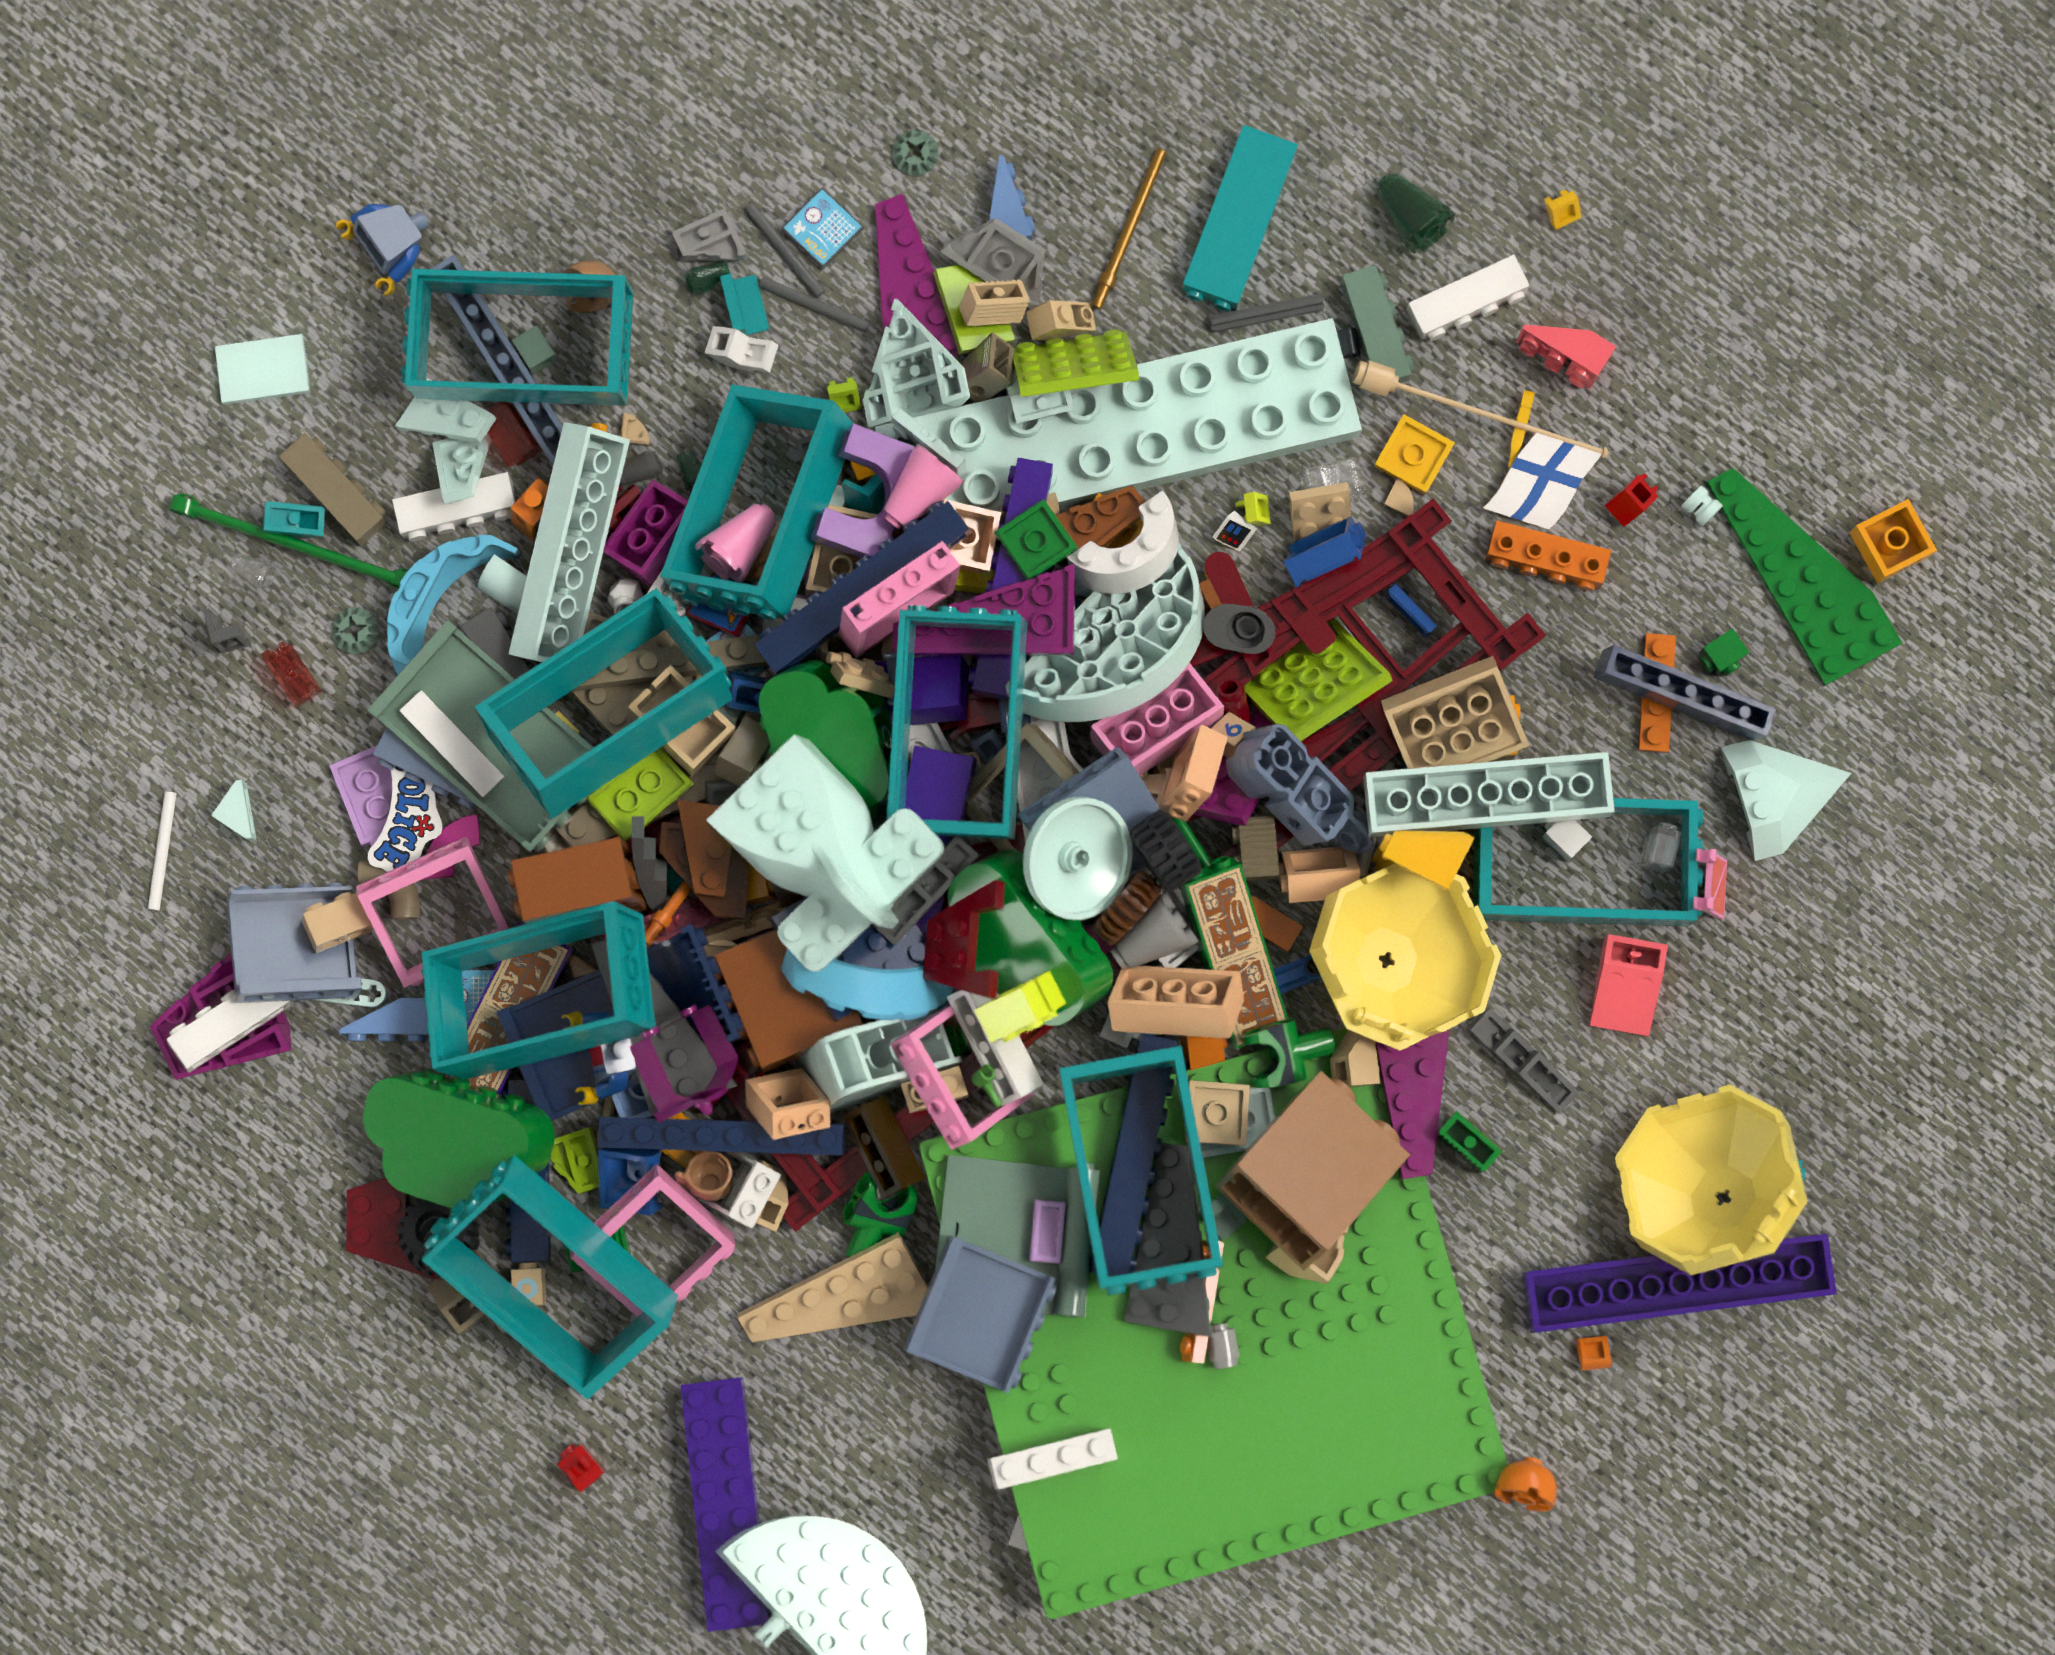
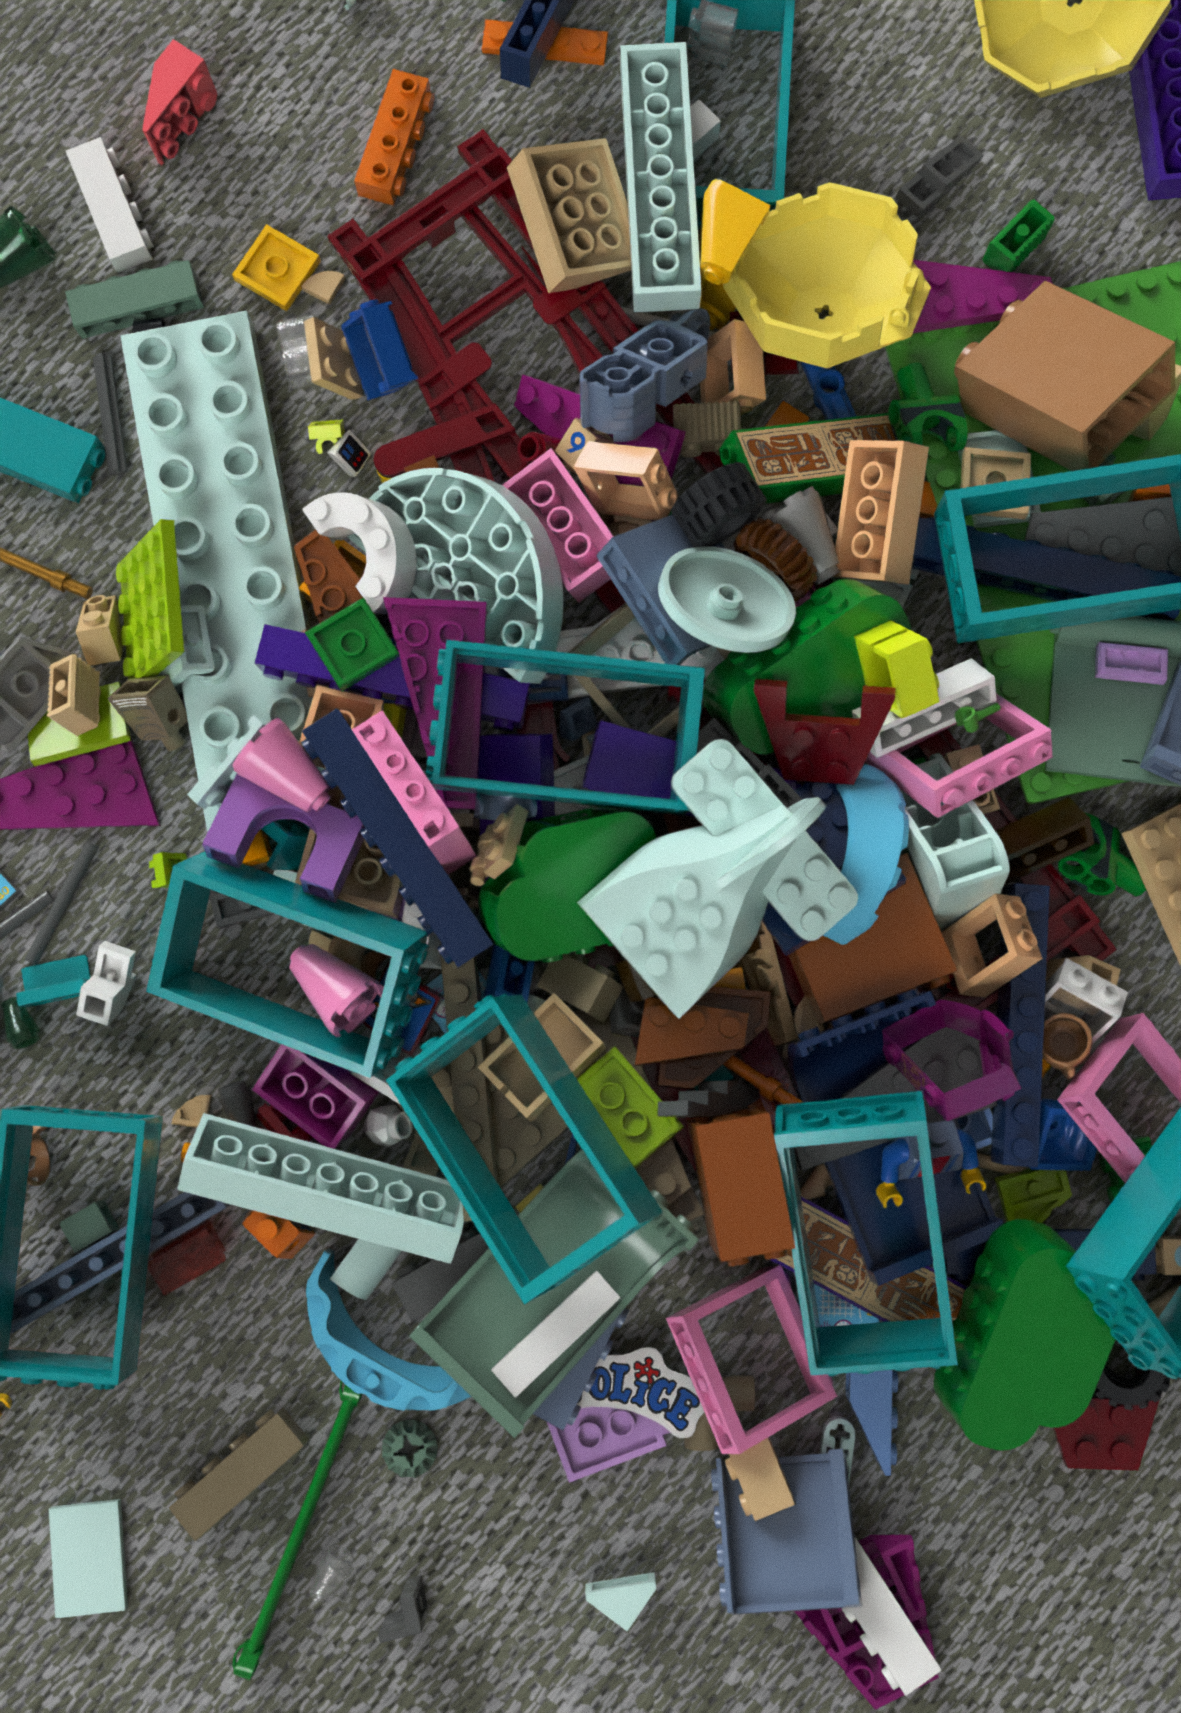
camera: 85 degrees left, 0 degrees up
(162, 851) = (664, 1690): white bar -> none
(291, 674) = (458, 1527): clear red hinge -> none
(293, 519) = (273, 1523): teal slope -> none
(428, 513) = (269, 1326): white brick -> none
(447, 417) = (162, 1332): light aqua wing -> none
(457, 830) = (656, 1331): dark pink tile -> none
(459, 466) = (219, 1317): light aqua wing -> none
(689, 468) = (245, 1046): clear green cone -> none
(912, 373) = (147, 786): light aqua wedge -> none
(1239, 628) = (463, 430): dark grey piece -> none
(1314, 689) = (531, 358): lime plate -> none
(1355, 1061) = (933, 345): tan slope -> none
(1411, 611) = (448, 275): blue tile -> none
(1522, 416) = (251, 160): yellow piece -> none
(1542, 473) = (304, 140): flag -> none
(1563, 209) = (20, 106): yellow tile -> none
(1628, 984) = (850, 78): coral slope -> none
(1632, 500) = (340, 49): red brick -> none

